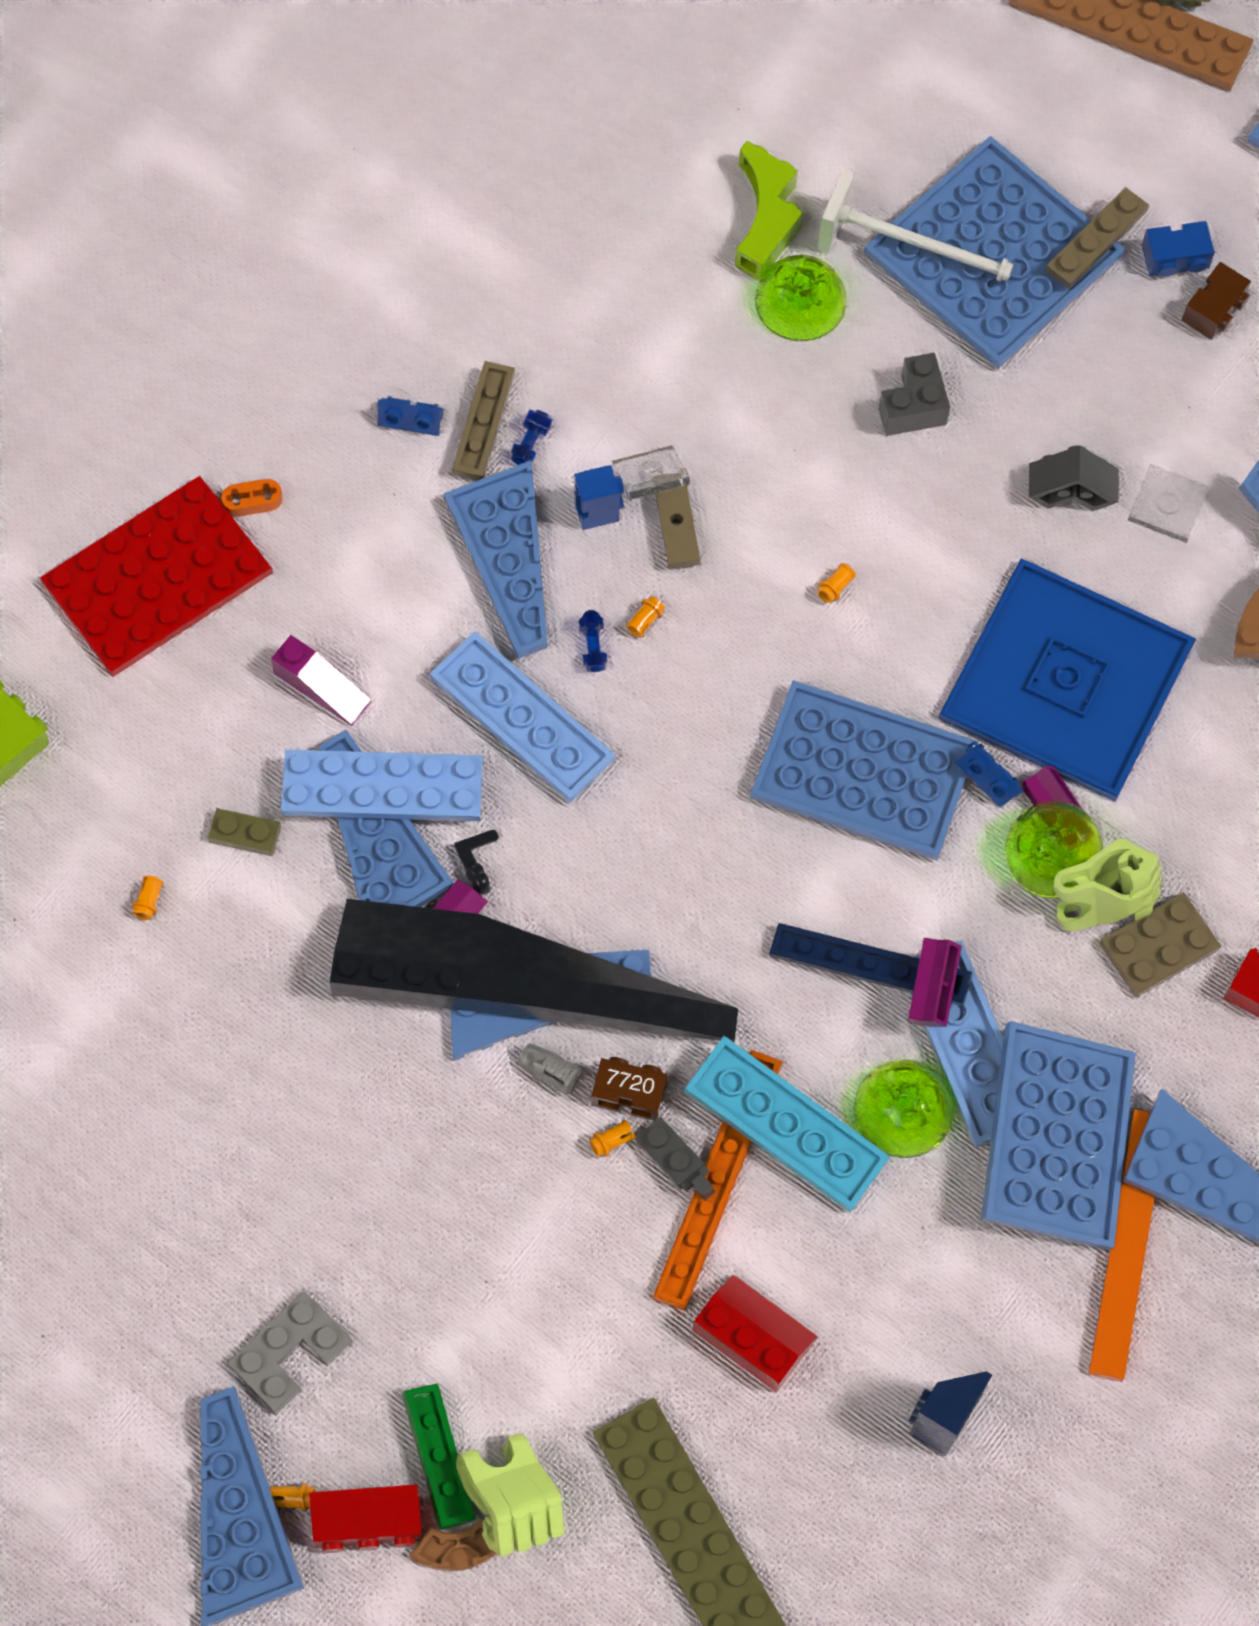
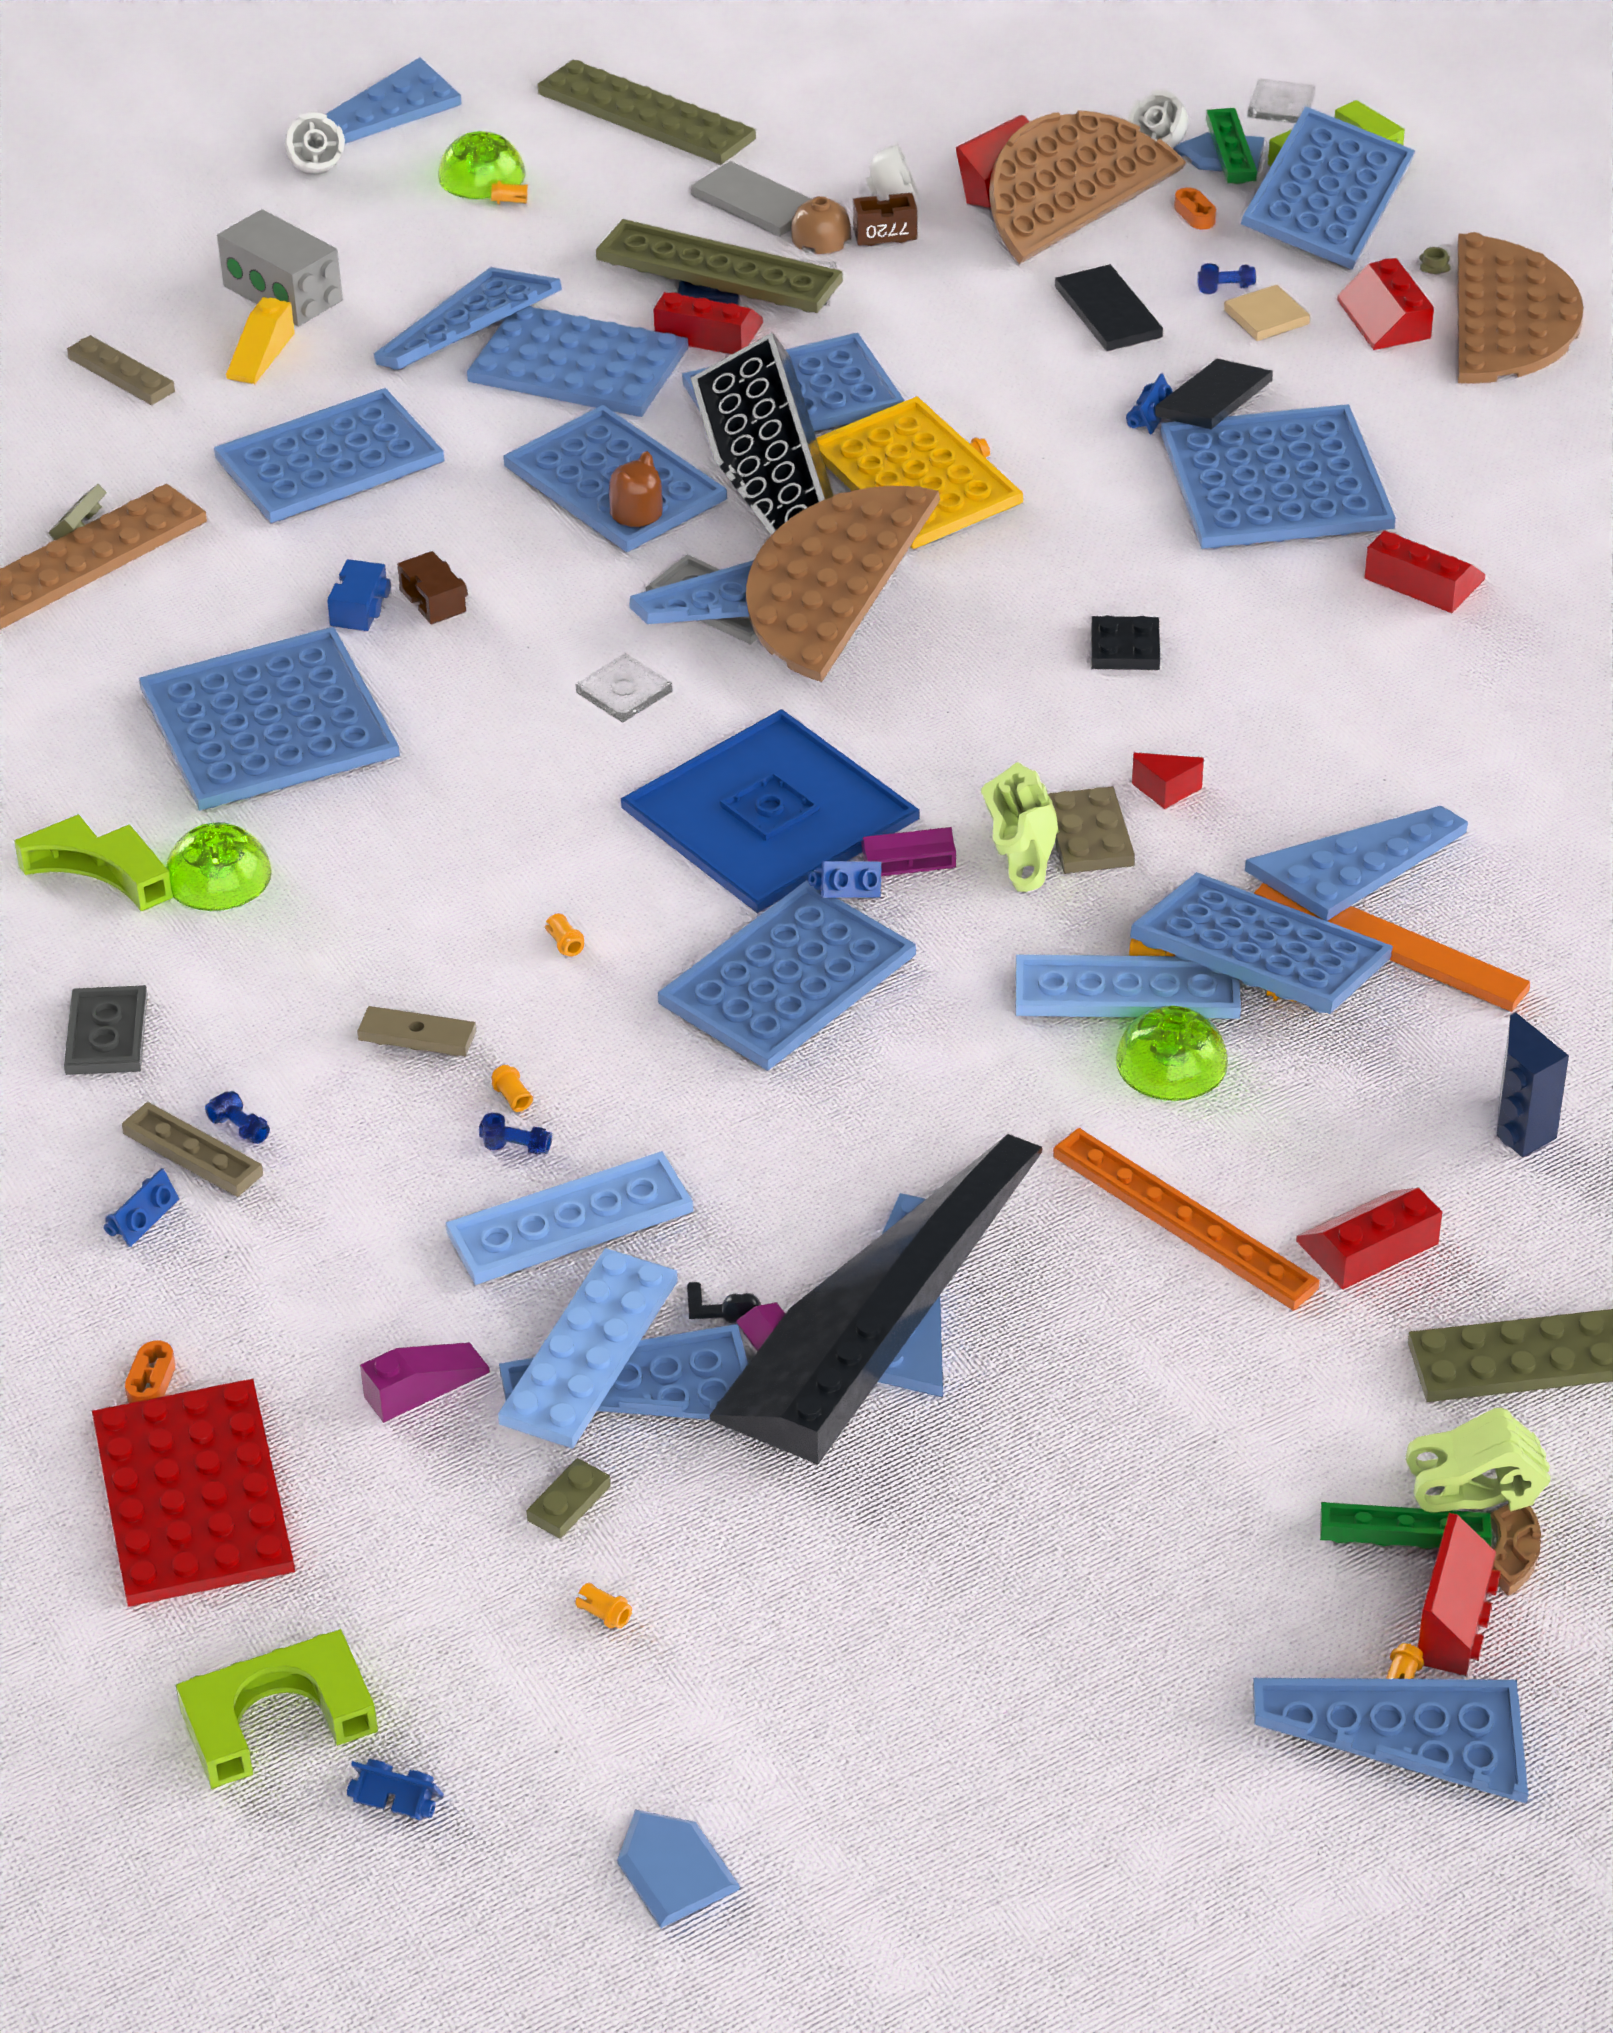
camera: 65 degrees left, 25 degrees down
(260, 1359) = (1198, 1615): light grey plate -> none
(502, 538) = (360, 1174): medium blue wing -> none
(550, 1068) = (988, 1313): light grey hinge -> none
(589, 303) = (106, 1030): none -> dark grey tile
(598, 496) = (355, 1071): blue brick -> none
(610, 1139) = (1103, 1291): light orange pin -> none
(629, 1087) = (1051, 1248): reddish brown brick -> none
(651, 472) = (349, 1027): clear tile -> none
(675, 1158) = (1150, 1236): dark grey hinge -> none
(786, 1124) = (1152, 1136): medium azure plate -> none
(840, 212) = (150, 799): white tile -> none
(855, 960) = (1007, 1027): dark blue tile -> none
(920, 402) = (397, 809): dark grey brick -> none
(934, 983) = (1061, 970): magenta piece -> none
(1074, 476) = (562, 727): dark grey brick -> none
(1075, 843) = (942, 873): clear neon green piece -> none
(1097, 238) = (310, 637): dark tan plate -> none

